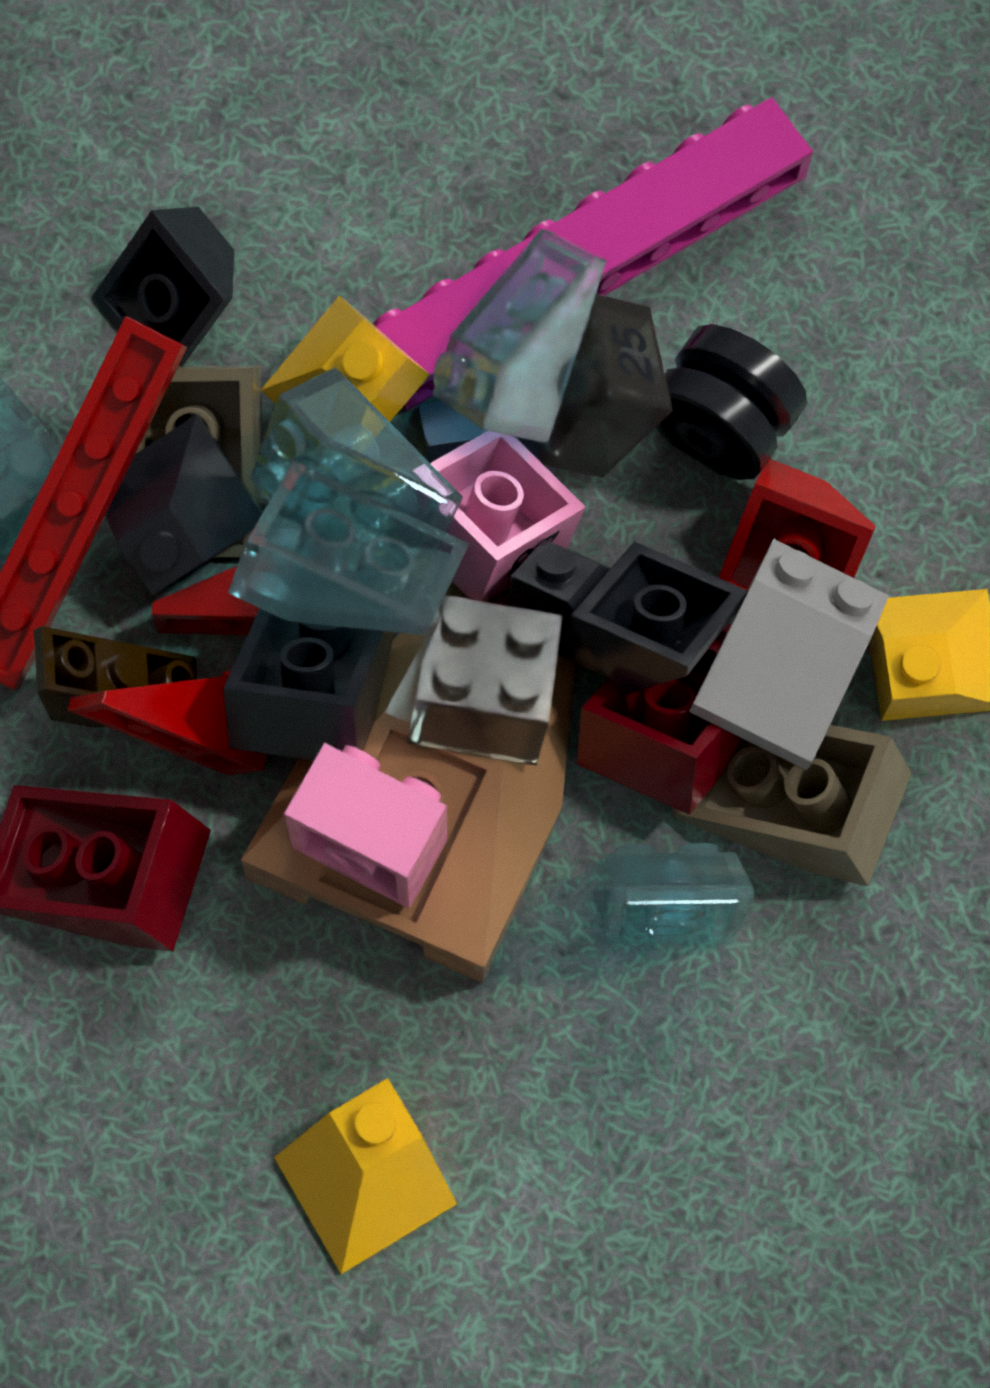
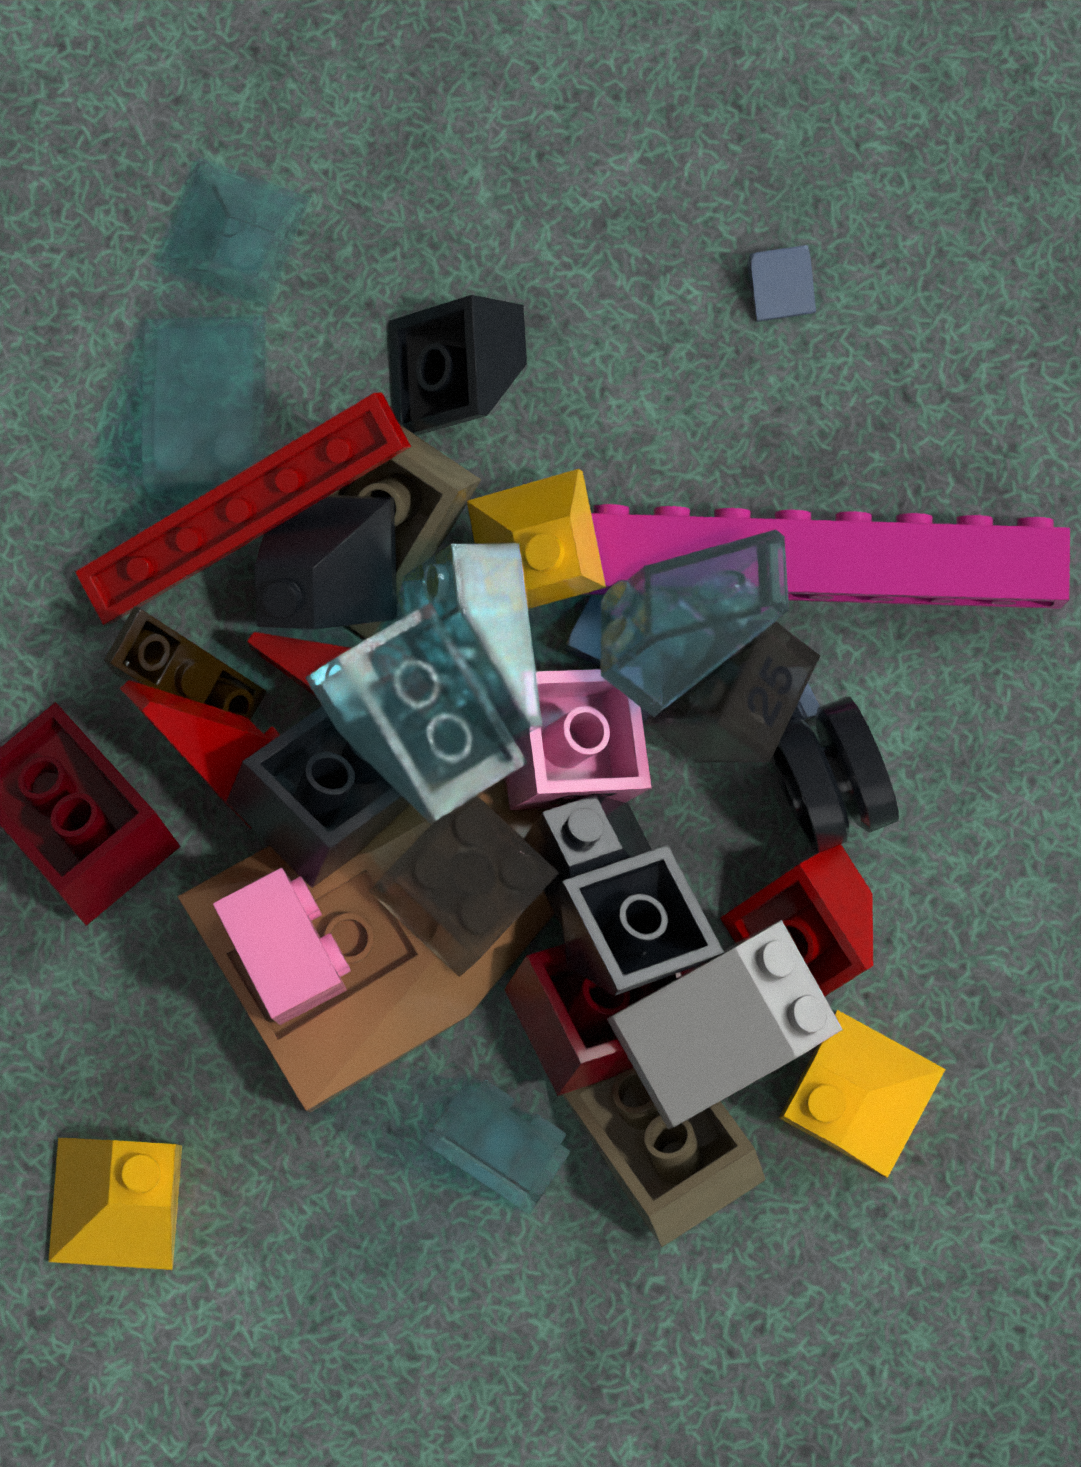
camera: 35 degrees right, 10 degrees up
(398, 67) = (781, 283): none -> sand blue slope

